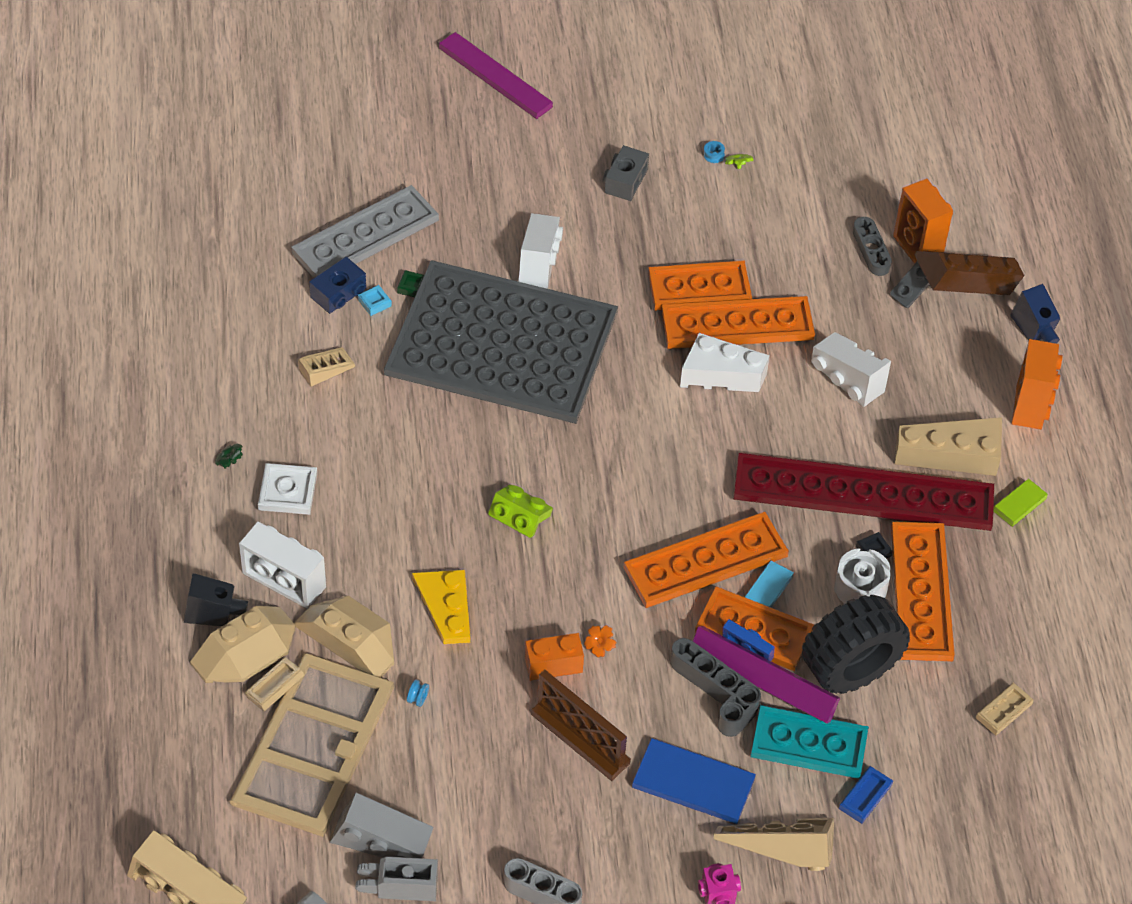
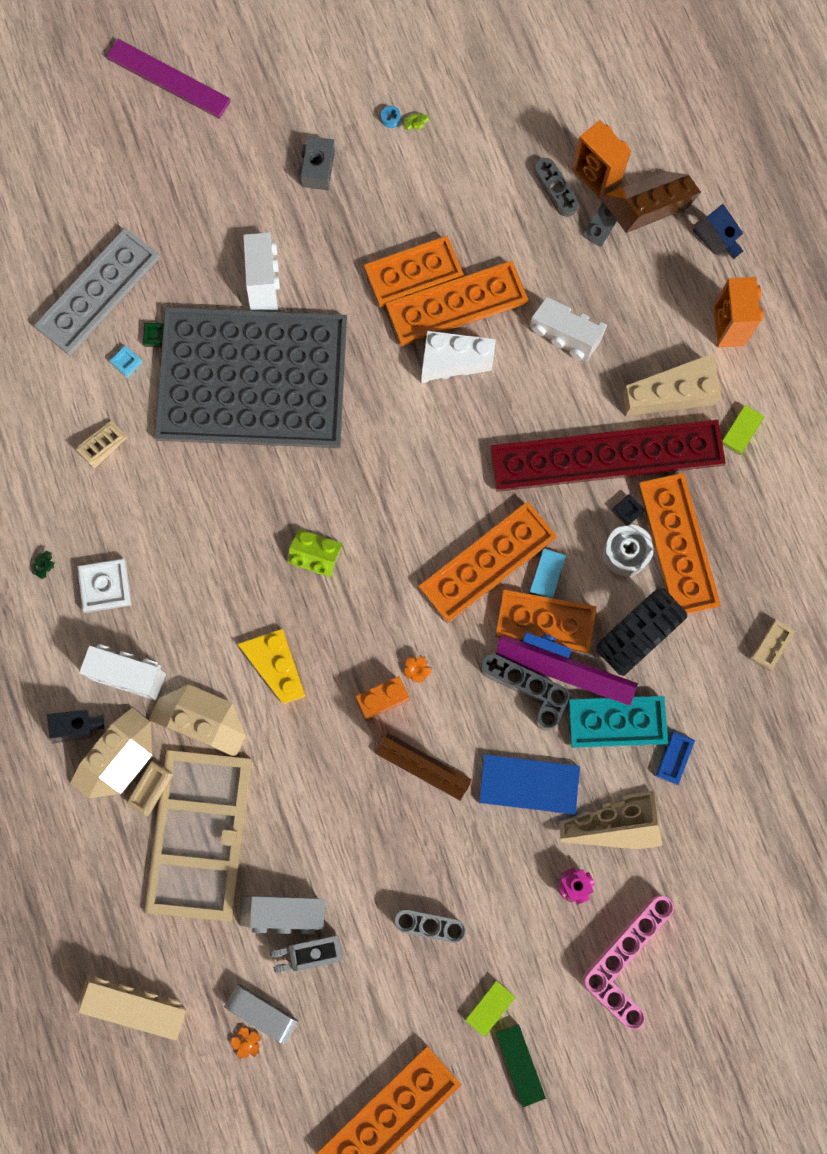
camera: 15 degrees left, 25 degrees up
(337, 285) = (88, 343): dark blue brick -> none
(418, 693) = (275, 764): dark azure bush -> none

